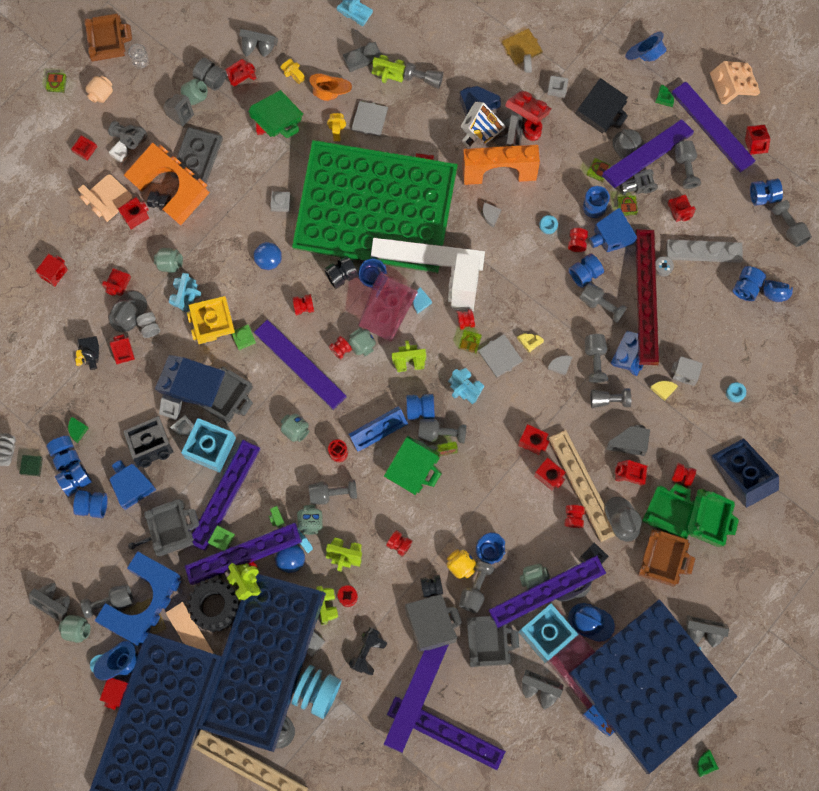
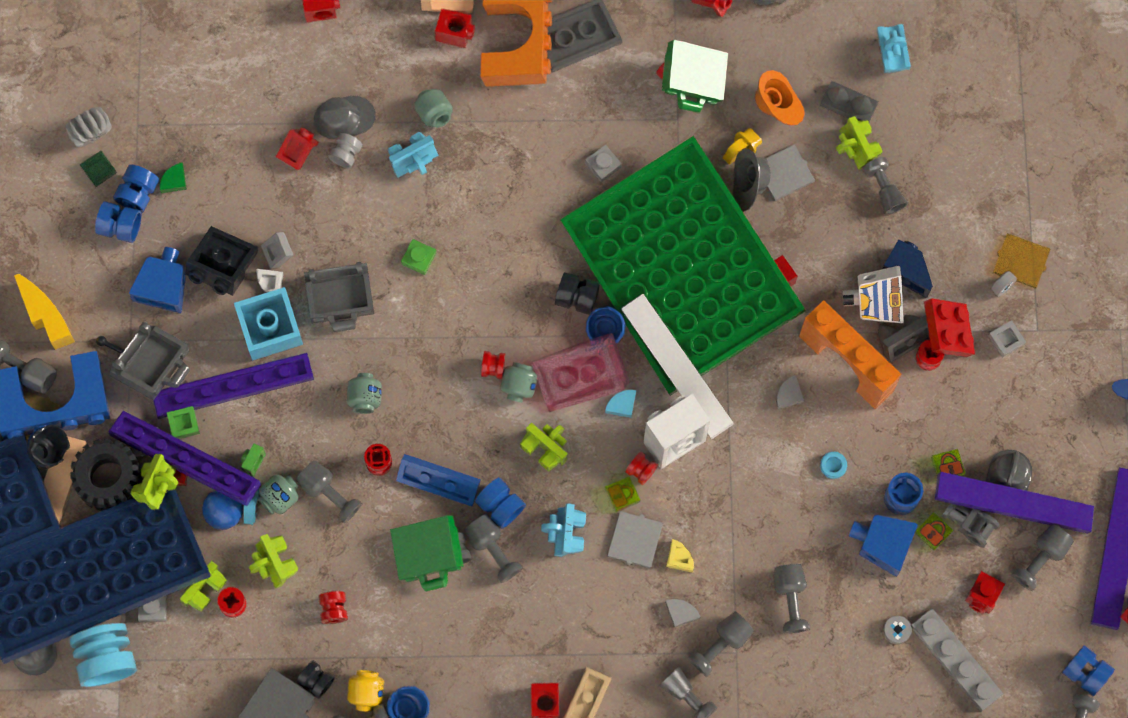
camera: 45 degrees right, 0 degrees up
(87, 352) = (263, 119): black piece -> none
(87, 563) = (44, 313): none -> yellow slope
(88, 503) = (105, 259): blue wheel -> none
(116, 282) = (363, 78): red bracket -> none
(158, 200) = (490, 38): black wheel -> none
(167, 624) = (47, 446): none -> black hair
(189, 381) = (318, 244): dark blue slope -> none
(210, 319) = (405, 207): yellow plate -> none
(267, 256) = (530, 203): blue hair -> none
(292, 69) = (764, 41): yellow piece -> none
(300, 364) = (439, 340): dark purple tile -> none
(303, 304) = (507, 286): red wheel -> none
(357, 134) = (750, 178): none -> dark grey piece
(370, 639) = (206, 665): black piece -> none
(447, 448) = (479, 570): clear neon green tile -> none
(530, 432) = (564, 642): red brick -> none
(578, 238) = (841, 511): red wheel -> none
(584, 271) = (812, 549): blue wheel -> none
(602, 106) = (1027, 407): black piece -> none
(627, 354) = (763, 677): blue bracket -> none
(646, 298) = (839, 639): dark red tile -> none
(664, 97) = (1105, 465): green tile -> none

